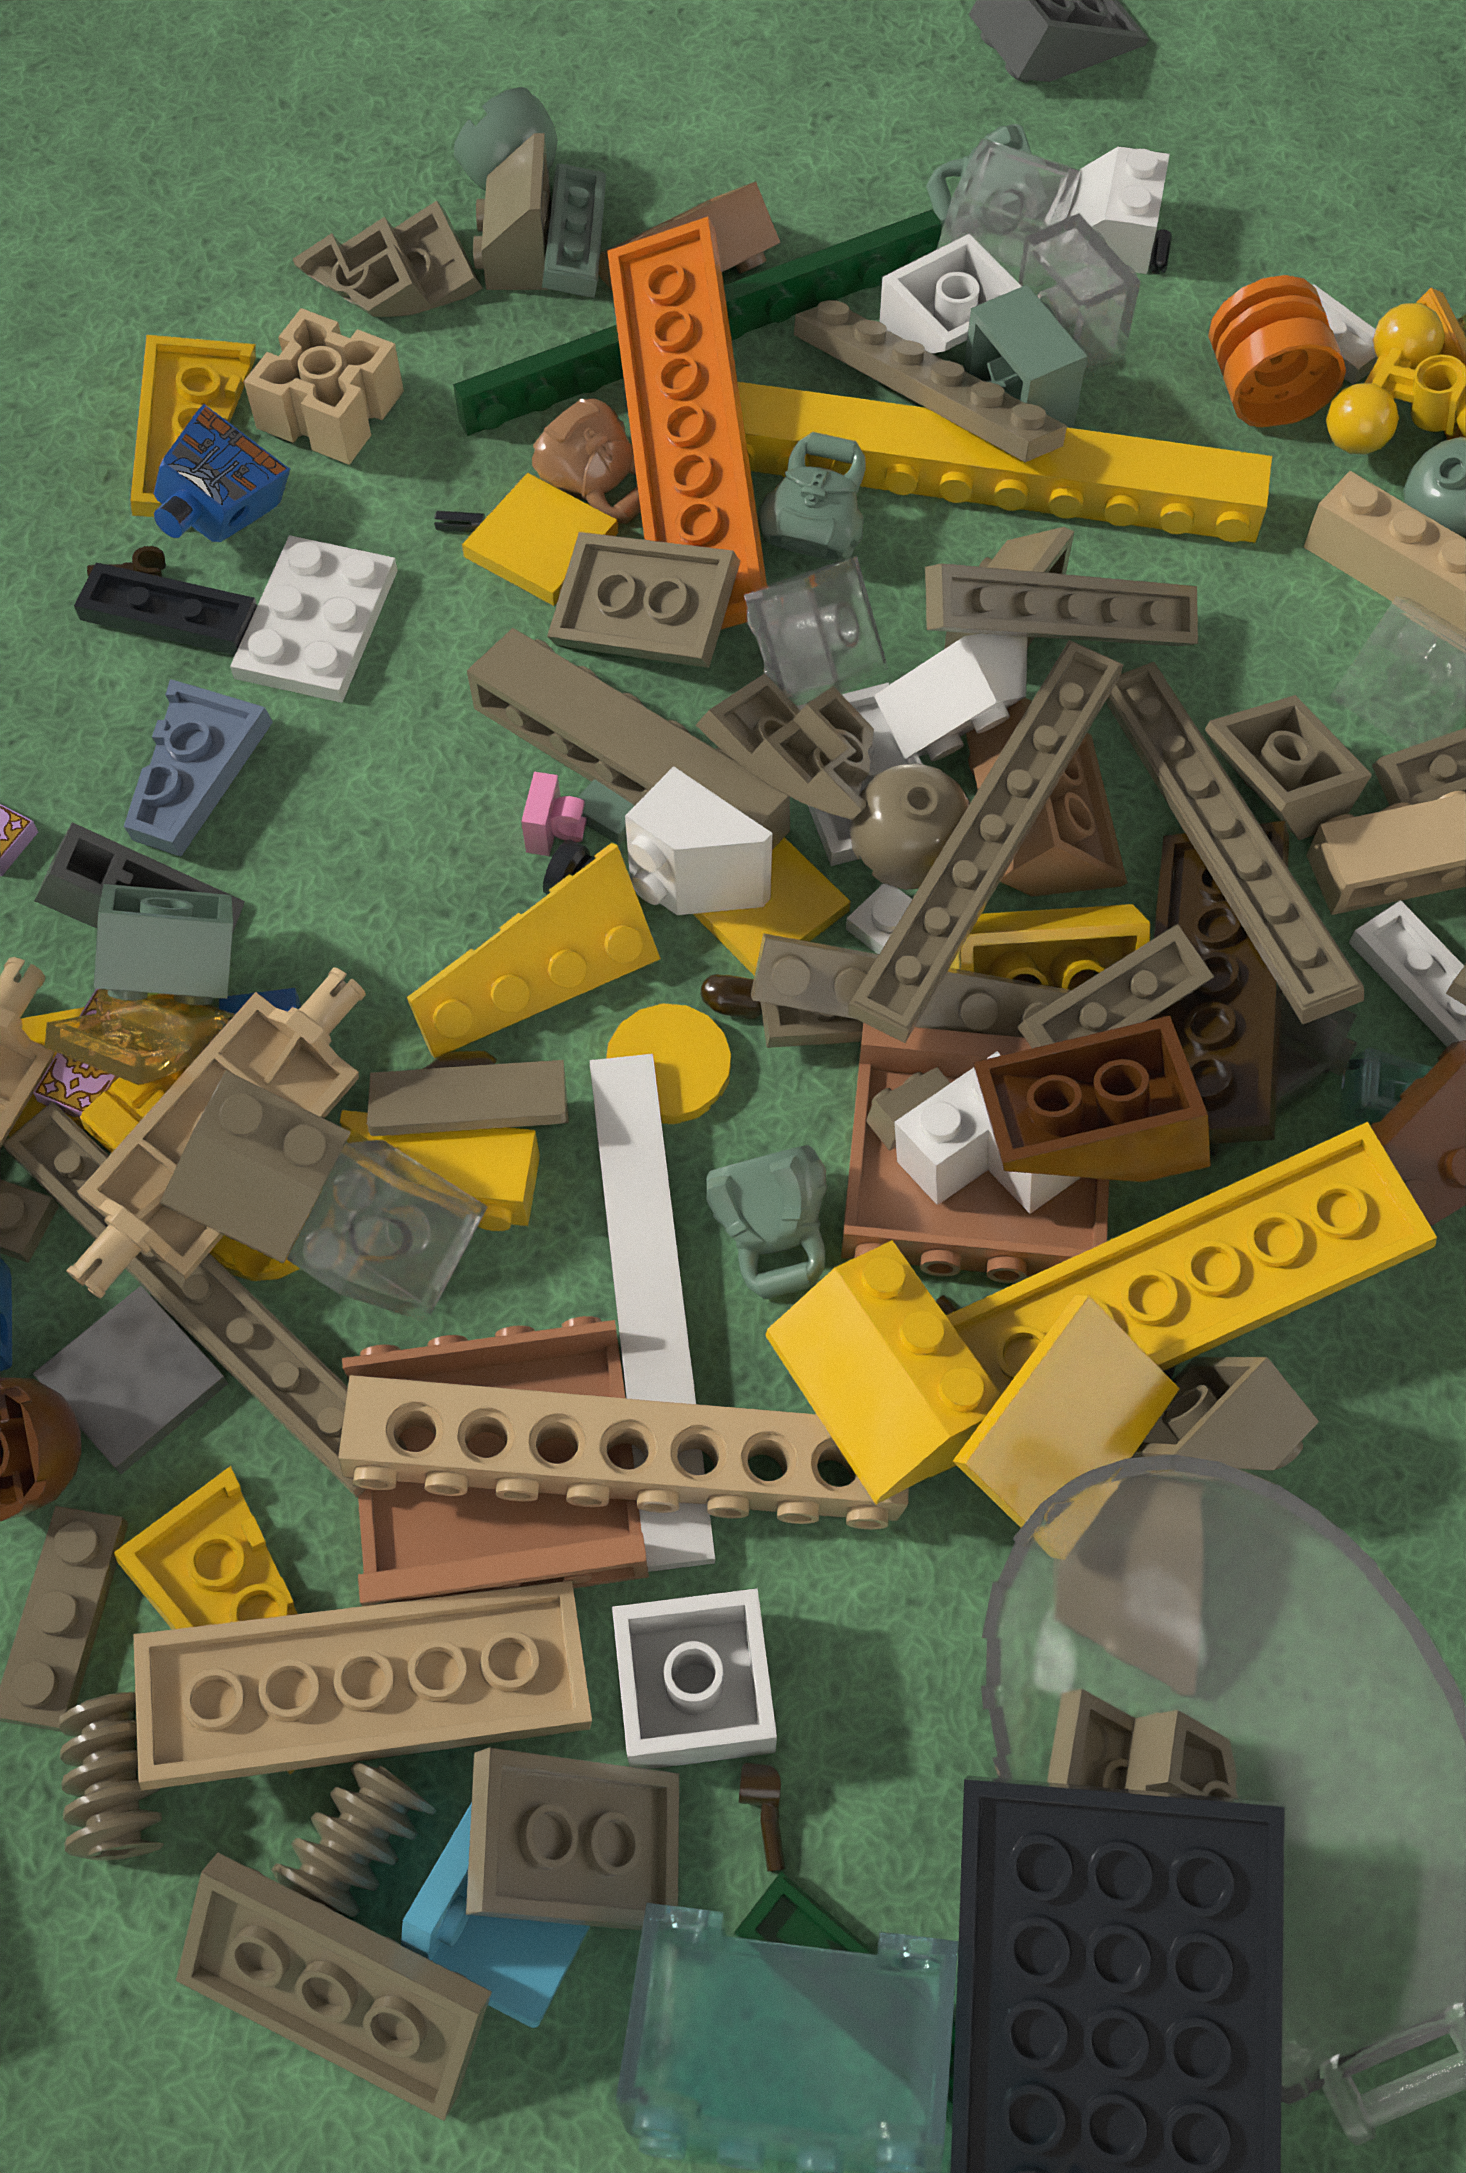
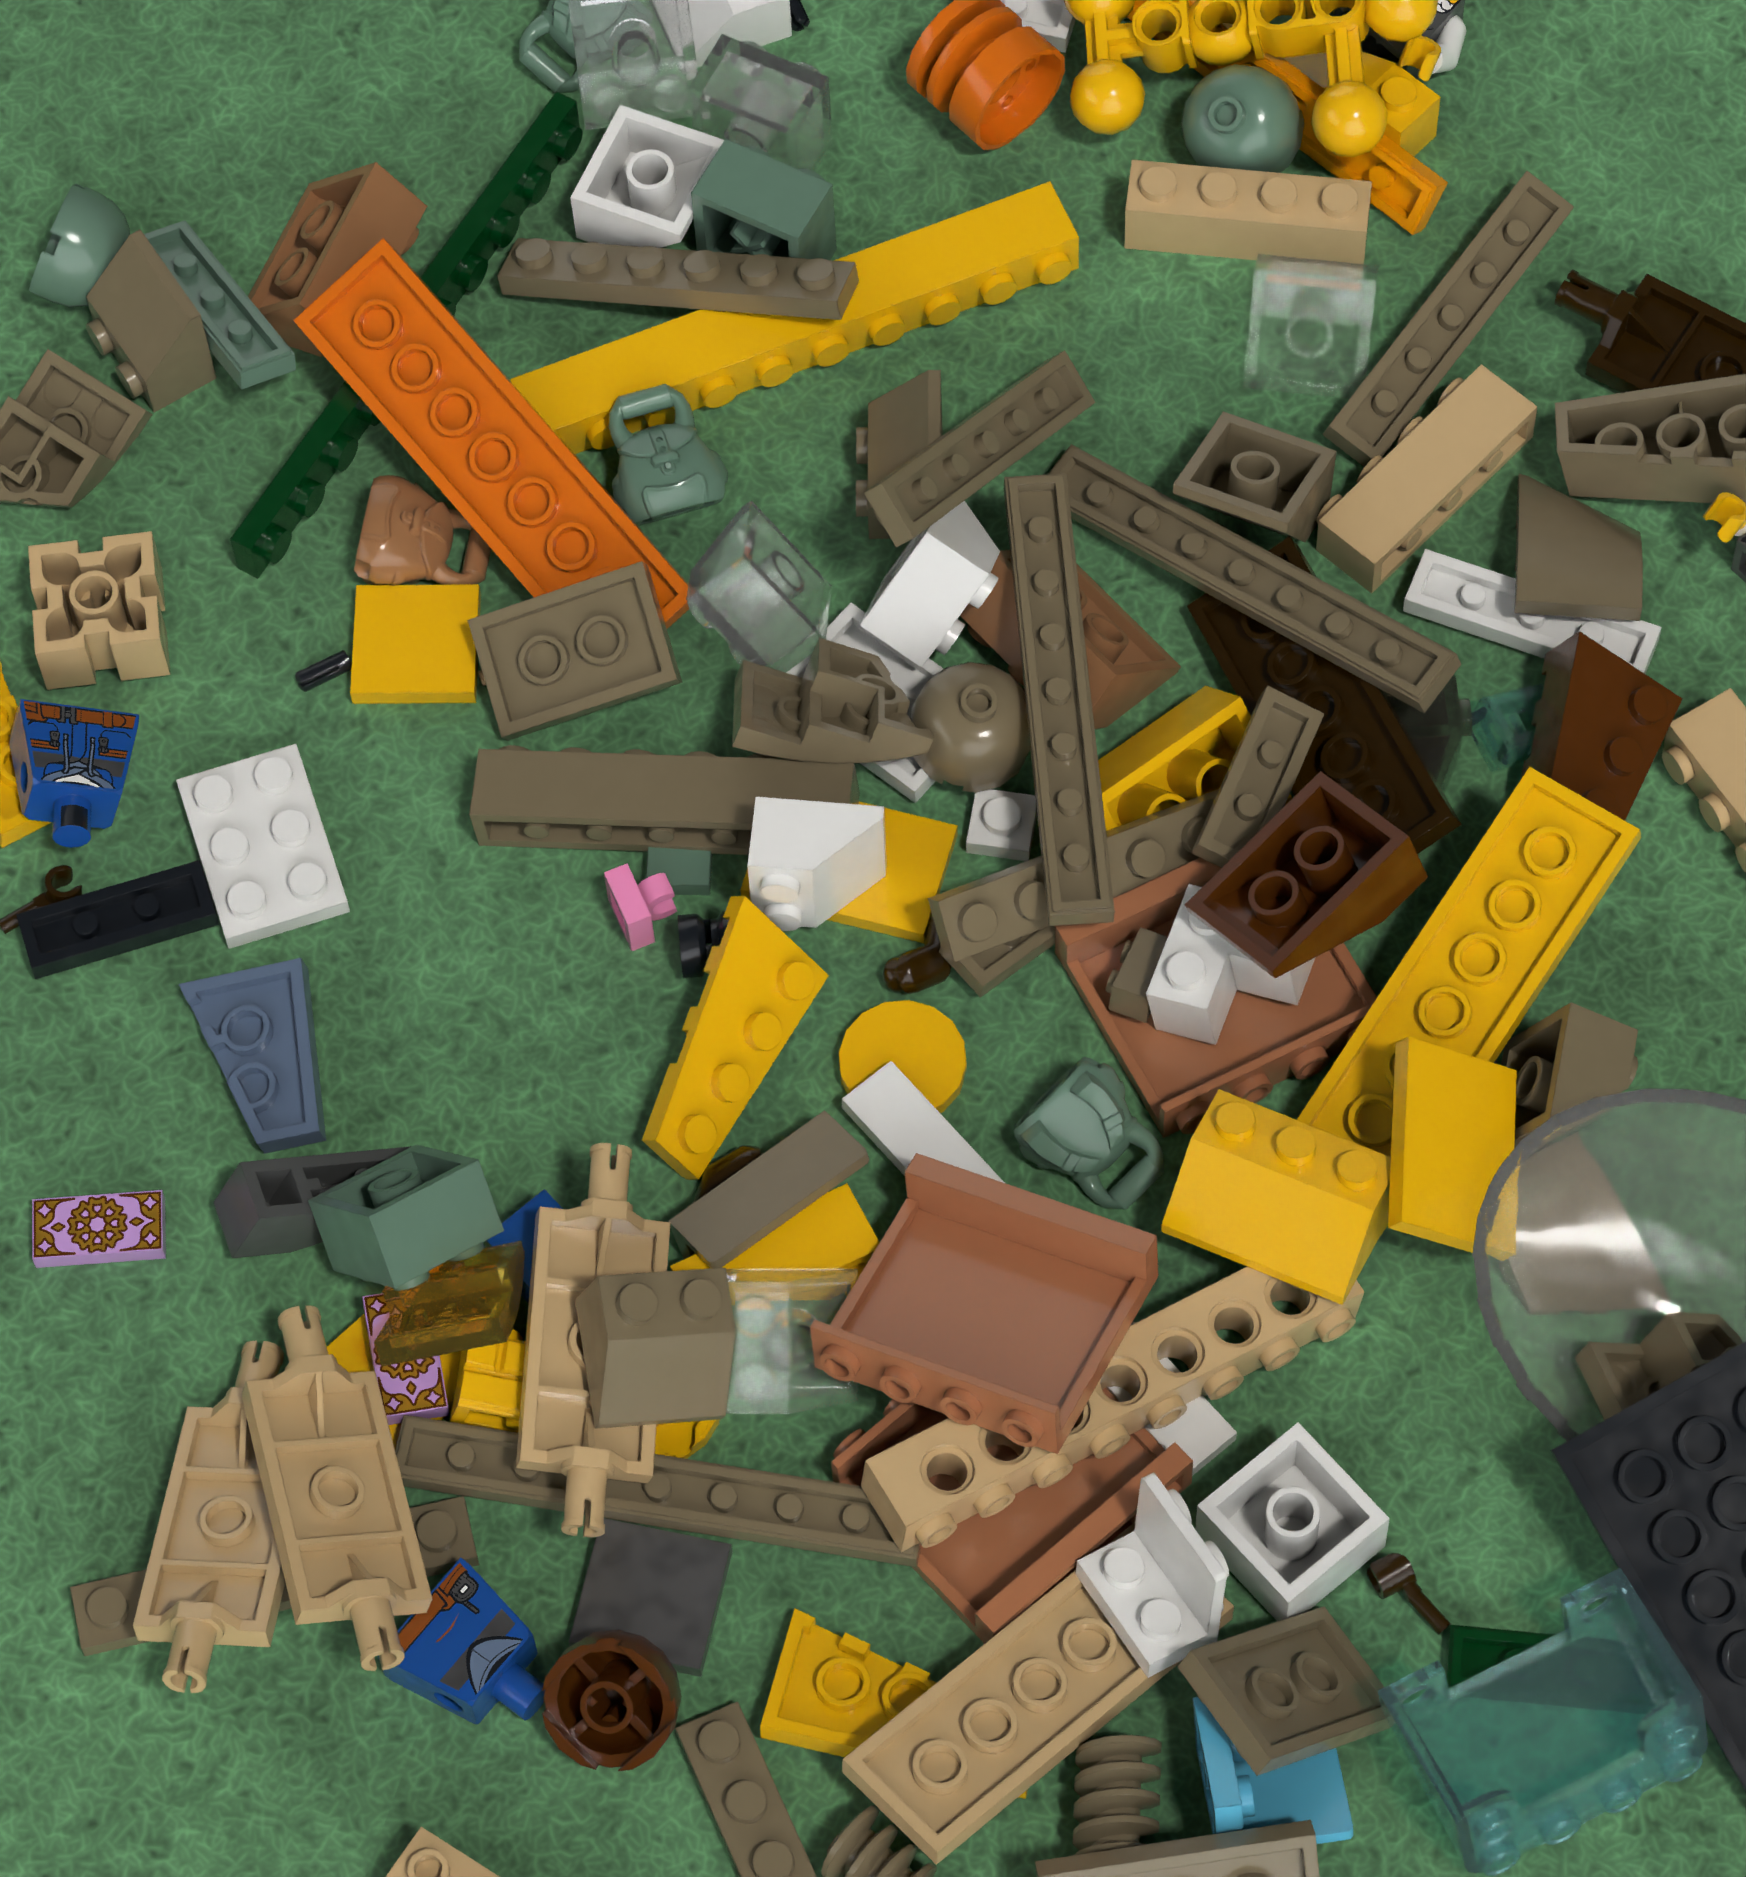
camera: 30 degrees left, 0 degrees up
(518, 1660) = (1159, 1582): none -> white bracket
(560, 1313) = (990, 1305): none -> nougat panel

